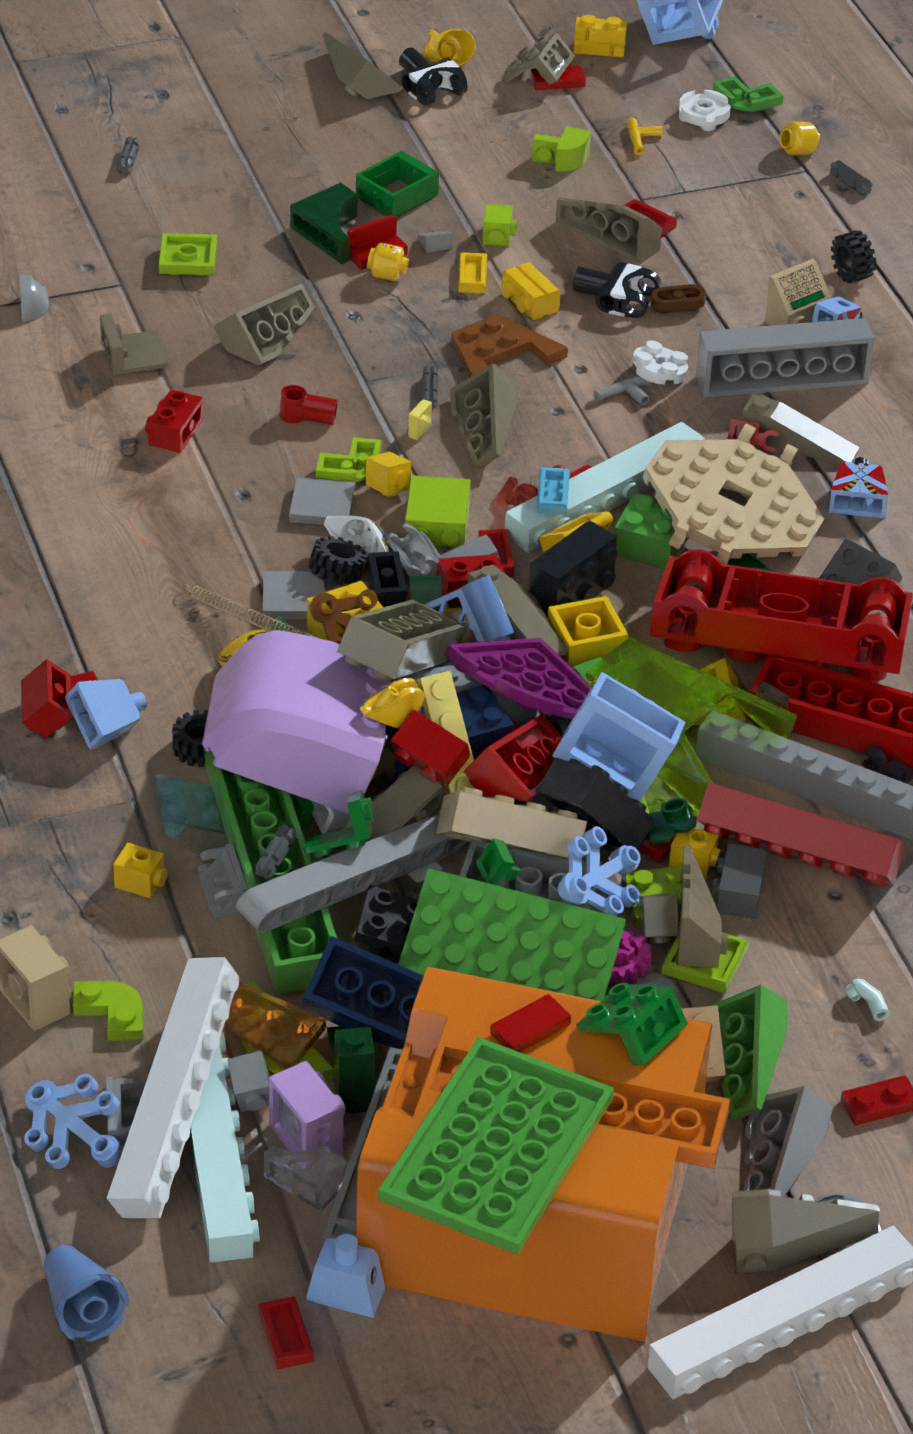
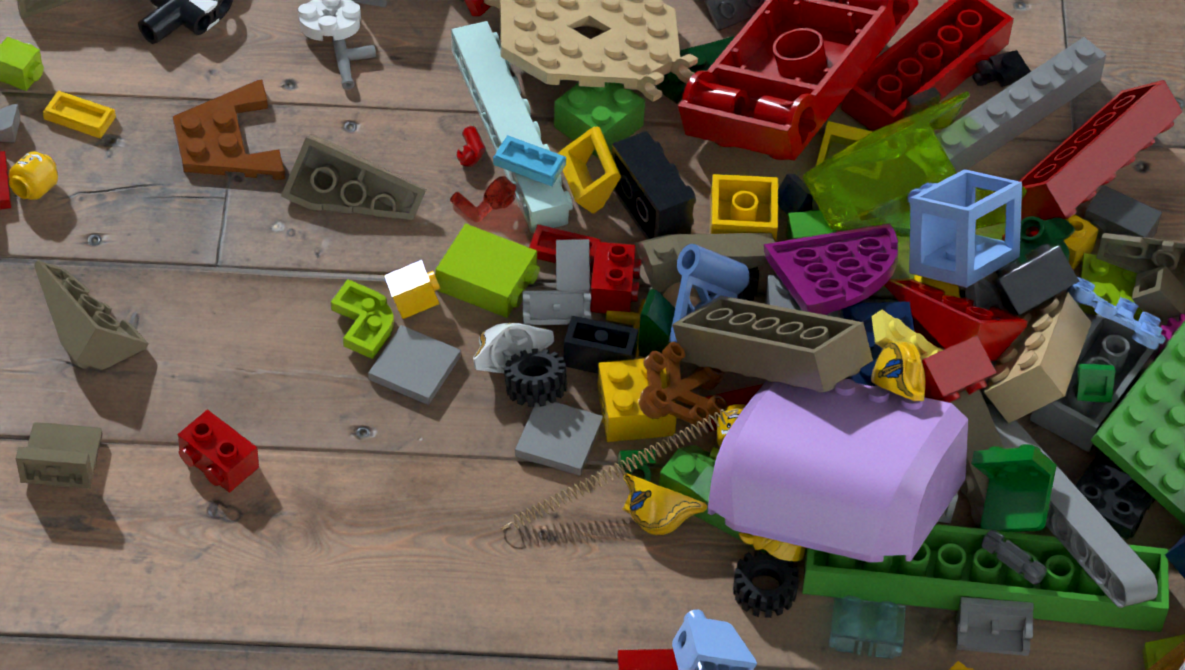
camera: 70 degrees left, 10 degrees up
(299, 405) = (250, 327): red piece -> none
(419, 419) = (325, 237): light yellow tile -> none
(430, 385) = (264, 213): dark grey axle -> none
(530, 291) = (151, 75): yellow brick -> none

